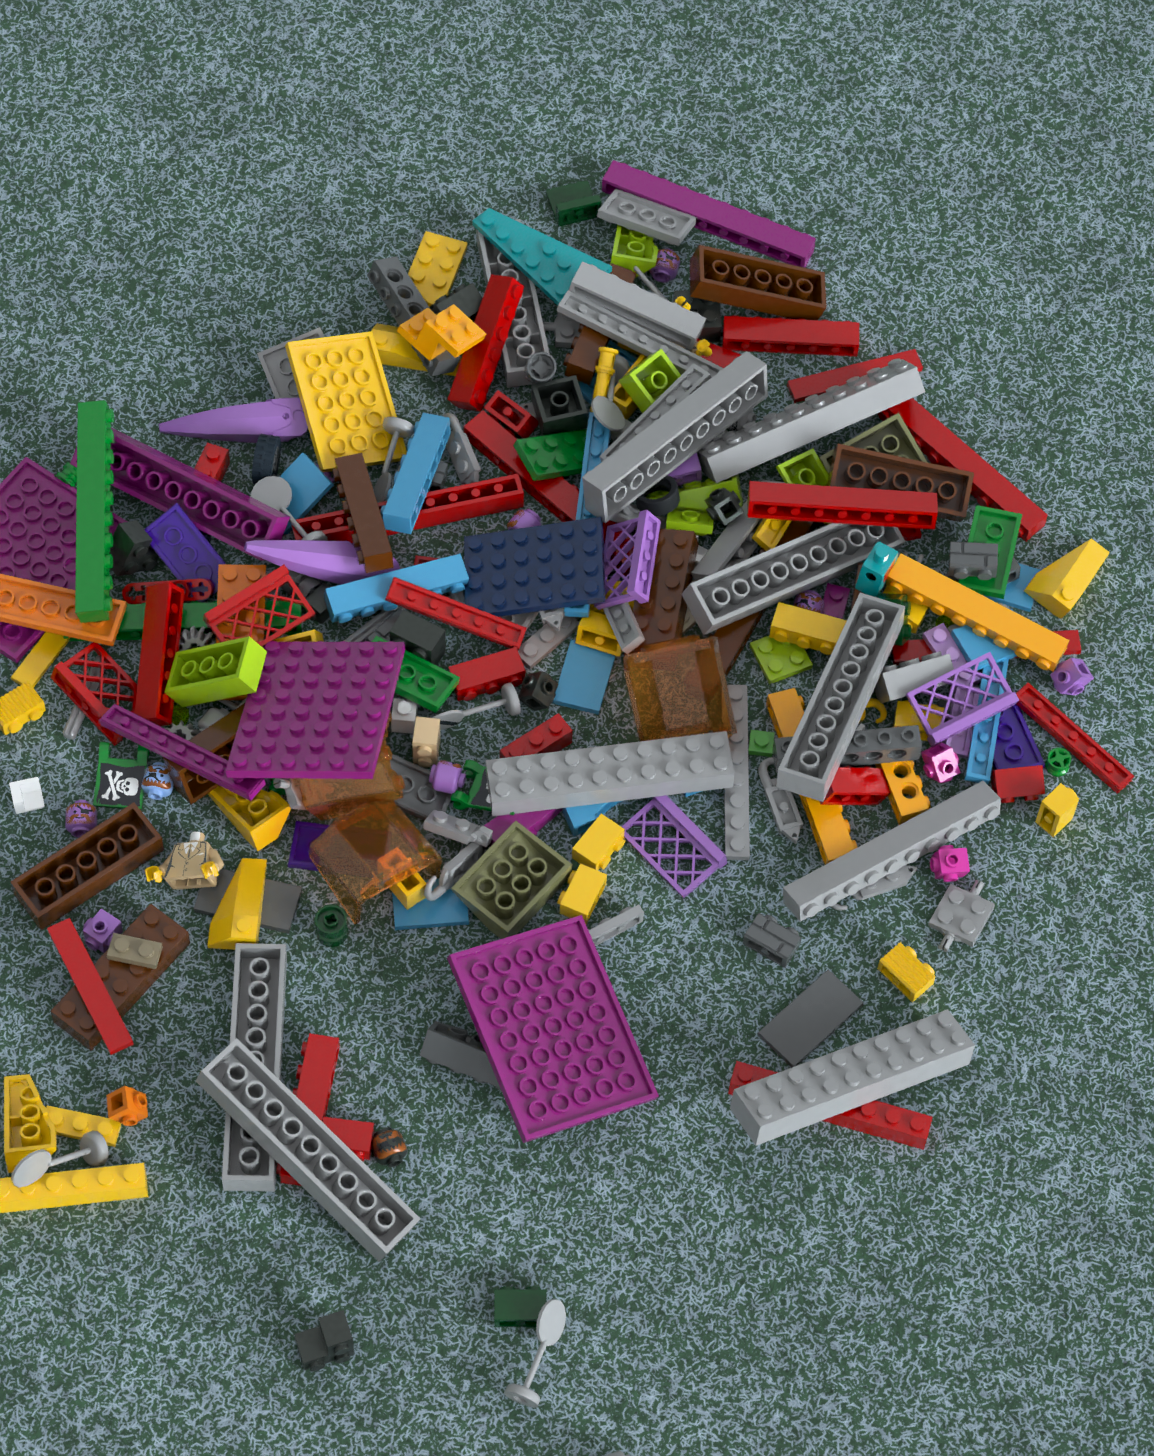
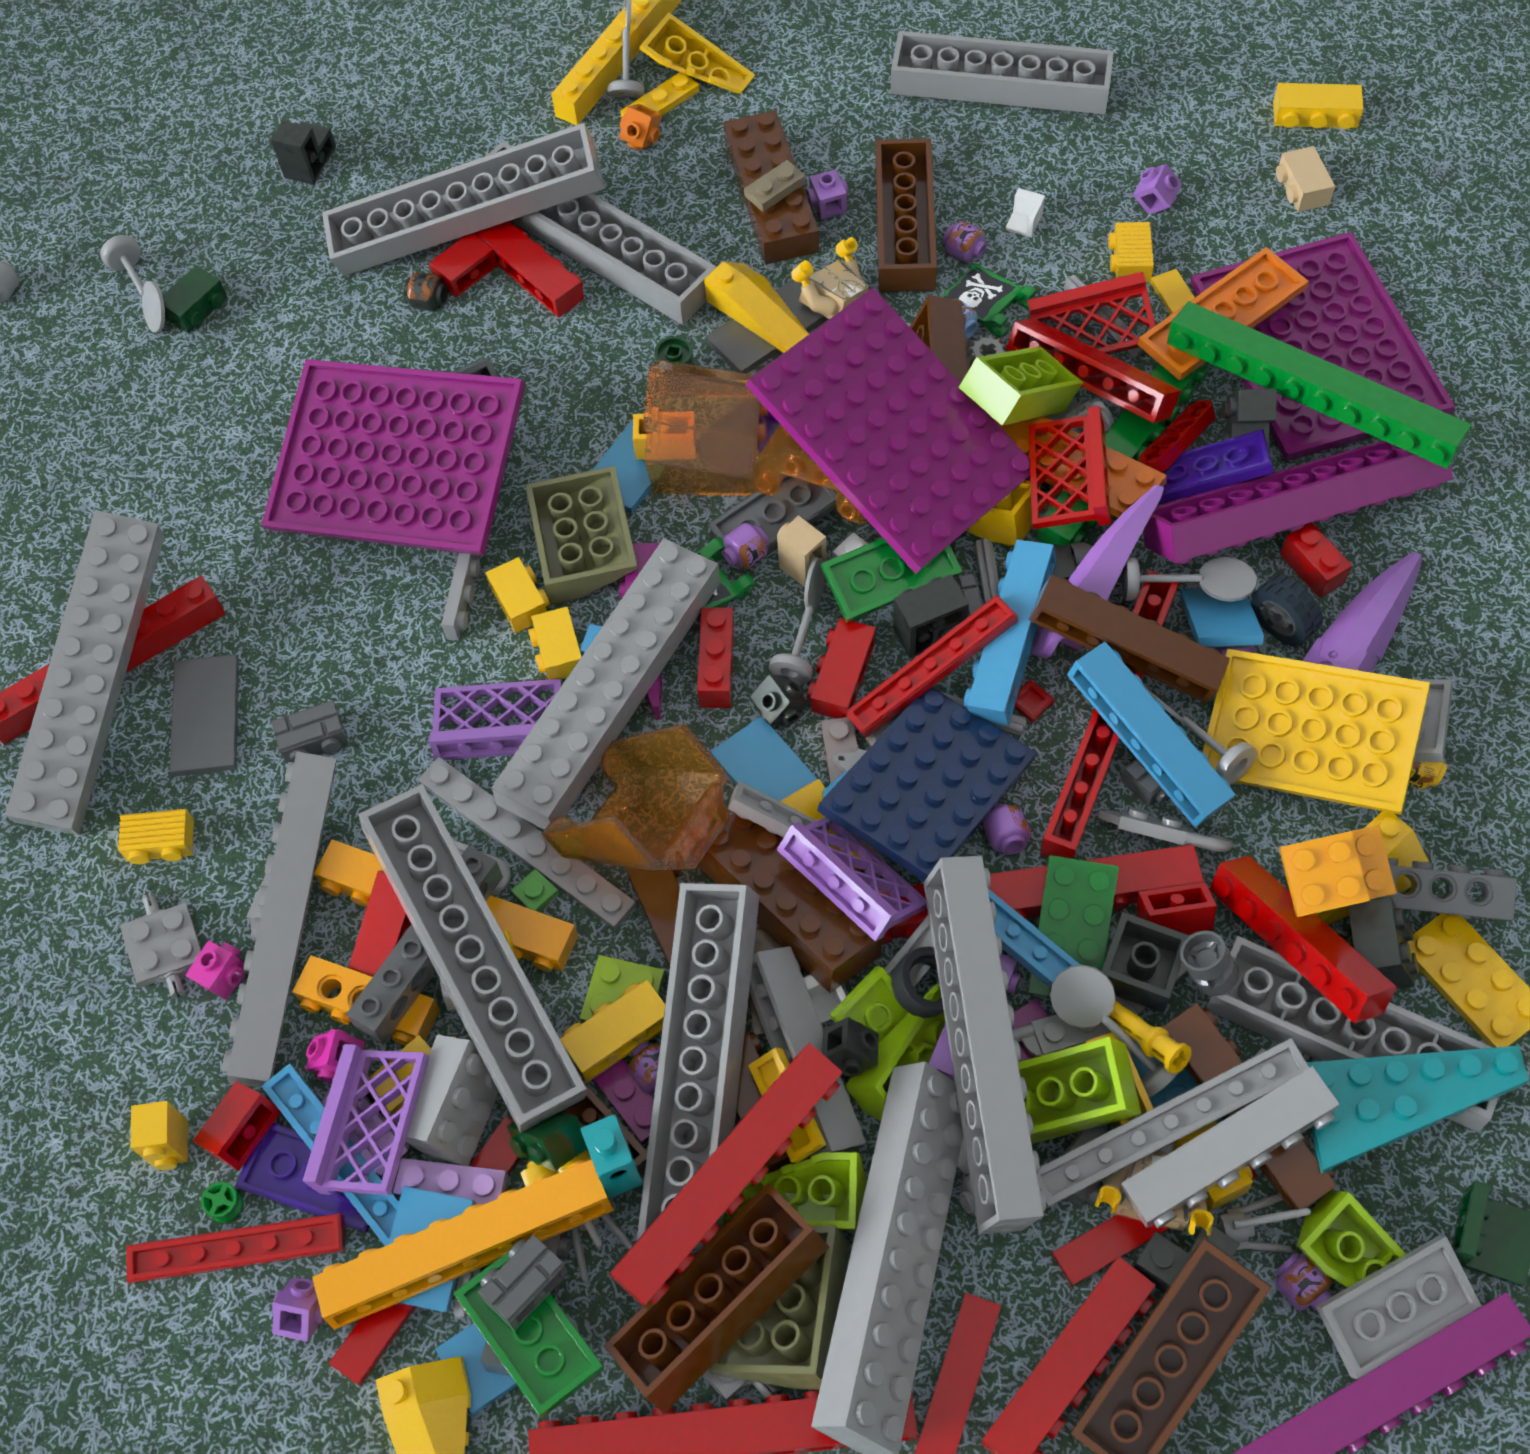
camera: 135 degrees right, 0 degrees up
(90, 986) = (769, 137): red tile -> none
(178, 750) = (976, 305): magenta tile -> none
(454, 870) = (637, 492): light grey plate -> none
(457, 829) = (681, 518): light grey hinge -> none
(683, 386) = (1037, 1063): light grey plate -> none

